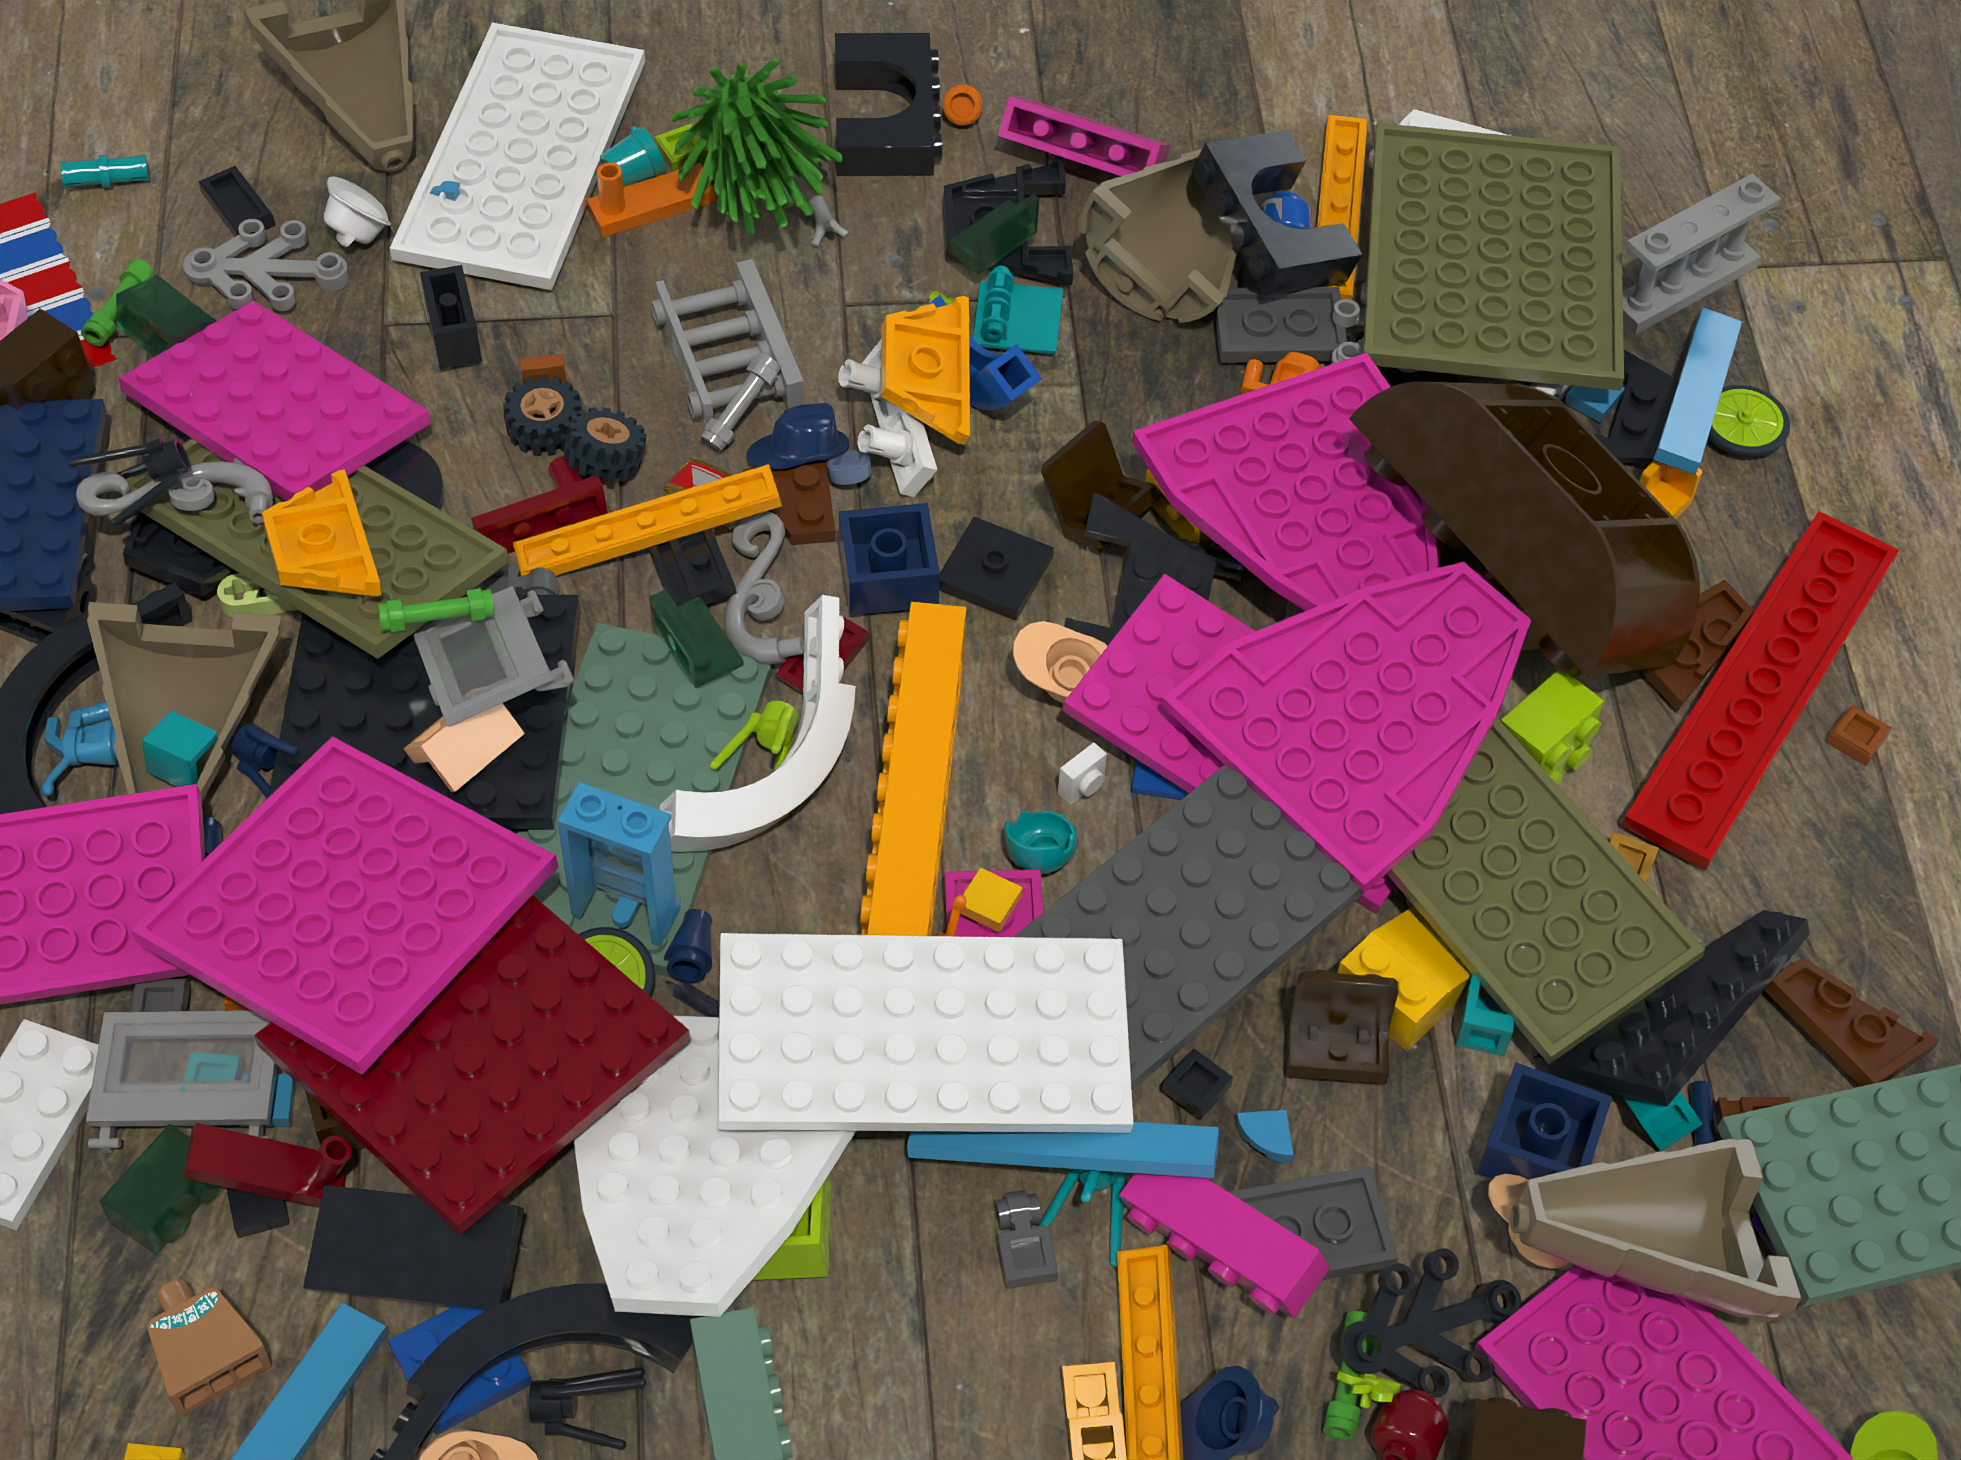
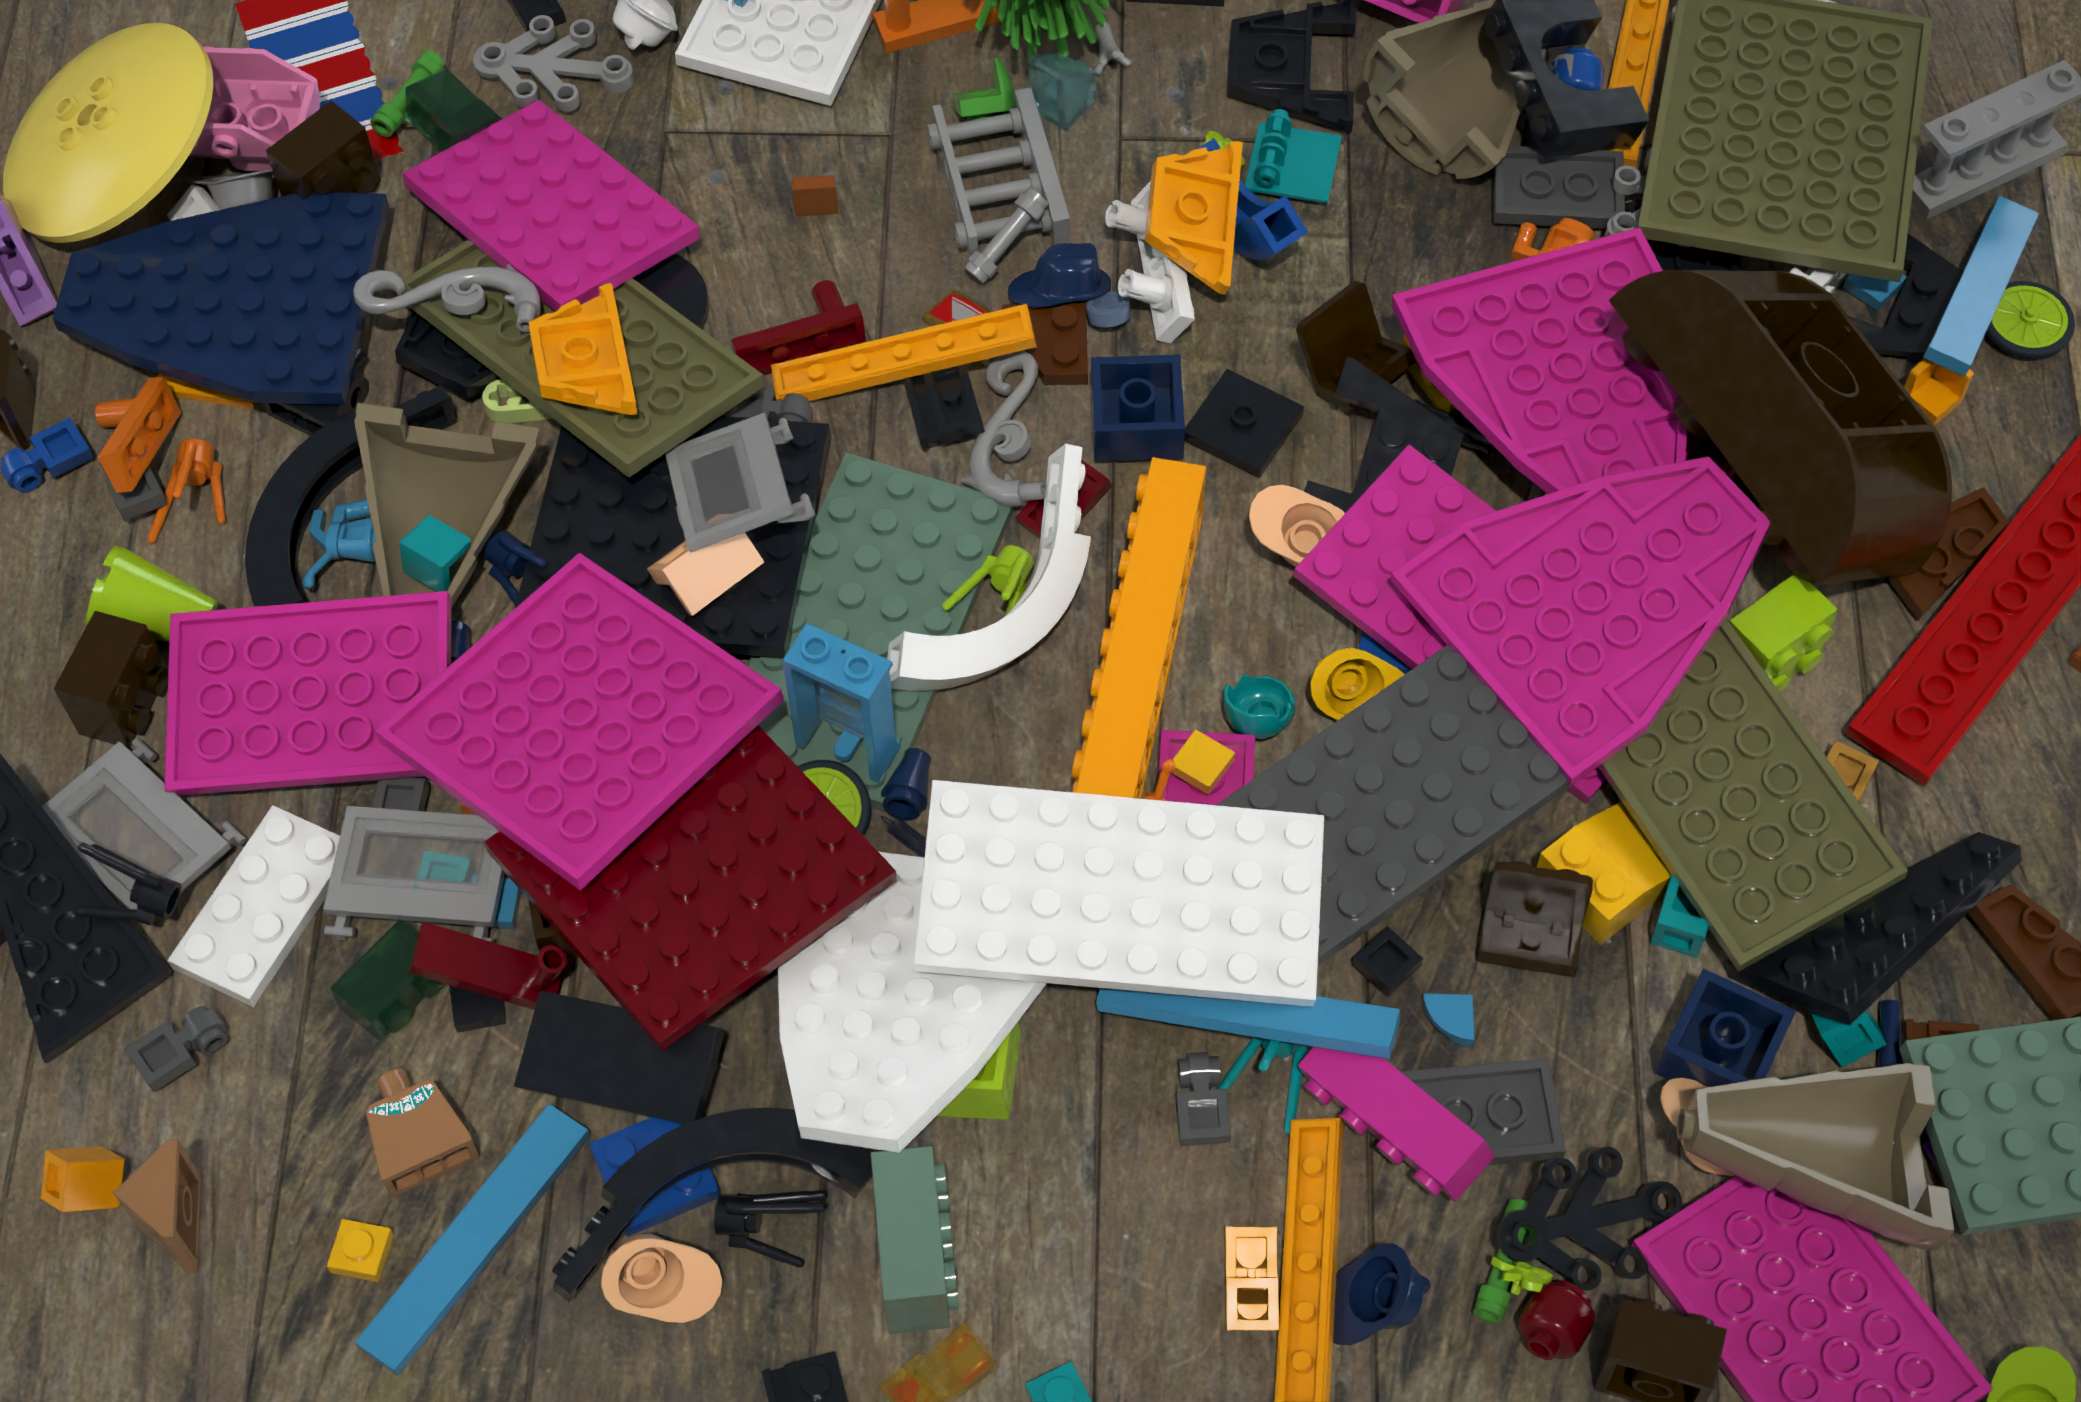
camera: 10 degrees right, 5 degrees up
(162, 462) = (436, 264): black plant -> none
(395, 615) = (727, 431): bright green bar -> none
(451, 316) = (728, 129): black brick -> none
(536, 400) = (824, 225): black wheel -> none
(604, 444) = (868, 271): black wheel -> none
(694, 638) = (938, 476): clear green panel -> none
(705, 277) = (984, 102): none -> bright green plate
(782, 258) = (1061, 88): none -> clear light blue slope
(996, 234) = (1279, 75): clear green panel -> none
(1082, 774) = (1307, 641): white plate -> none
(1129, 807) = (1349, 679): none -> yellow piece

